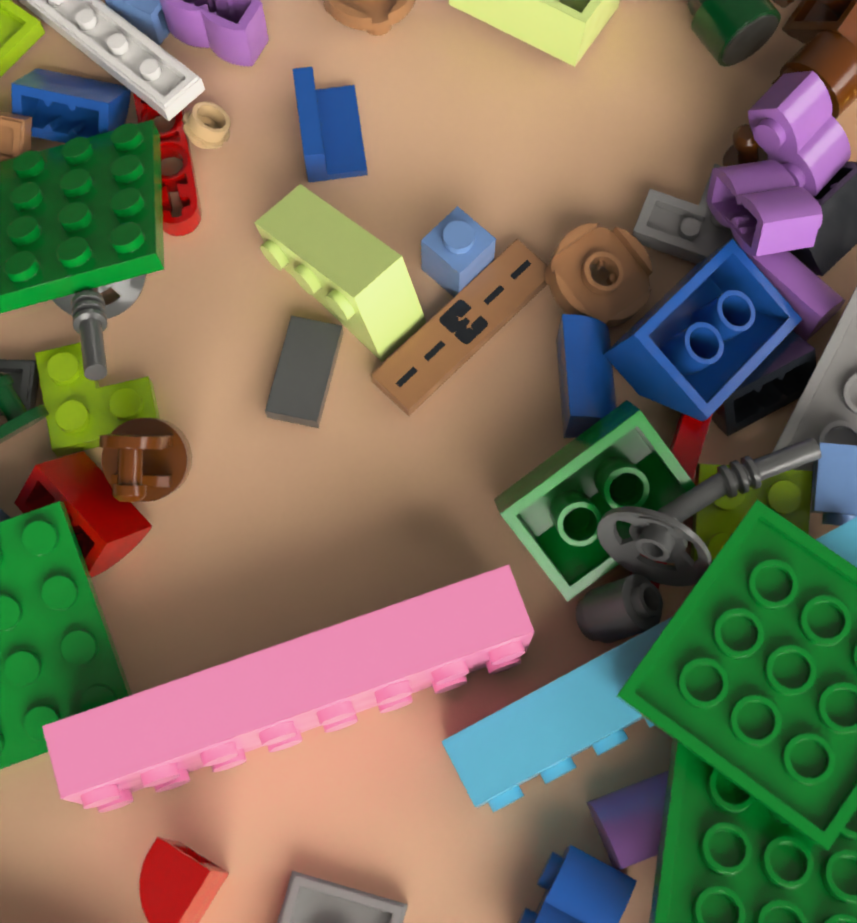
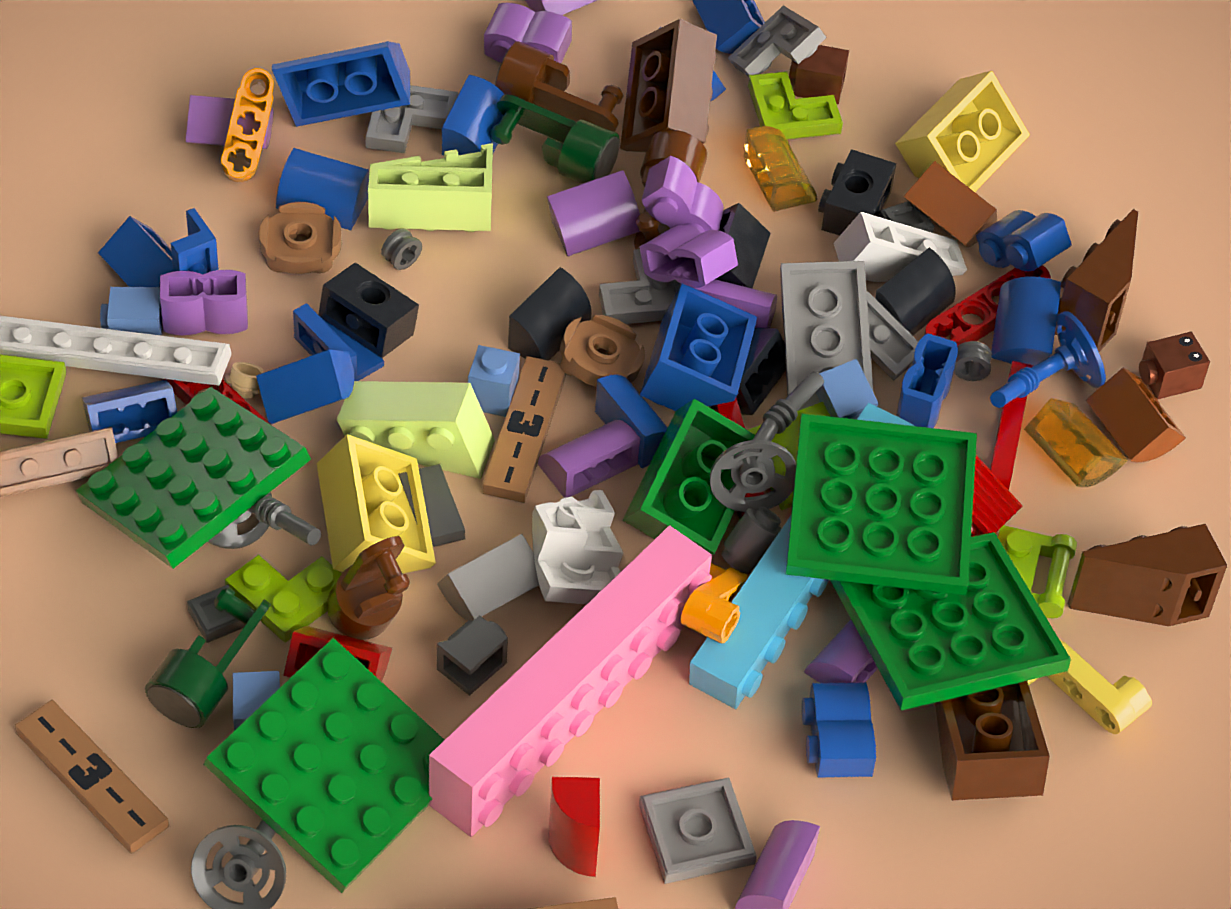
camera: 35 degrees left, 20 degrees down
(225, 584) = (473, 654): none -> dark grey window
(229, 351) = (369, 504): none -> light yellow slope
(252, 167) = (306, 384): none -> blue brick
(304, 503) = (491, 579): none -> light grey brick
(366, 80) = (368, 310): none -> black brick
(413, 517) = (575, 548): none -> white slope
(464, 45) = (401, 249): none -> dark grey bush
(494, 692) = (710, 605): none -> light orange beam
(510, 400) = (591, 458): none -> medium lavender brick
(566, 198) = (543, 317): none -> black brick
(698, 97) = (594, 213): none -> medium lavender brick

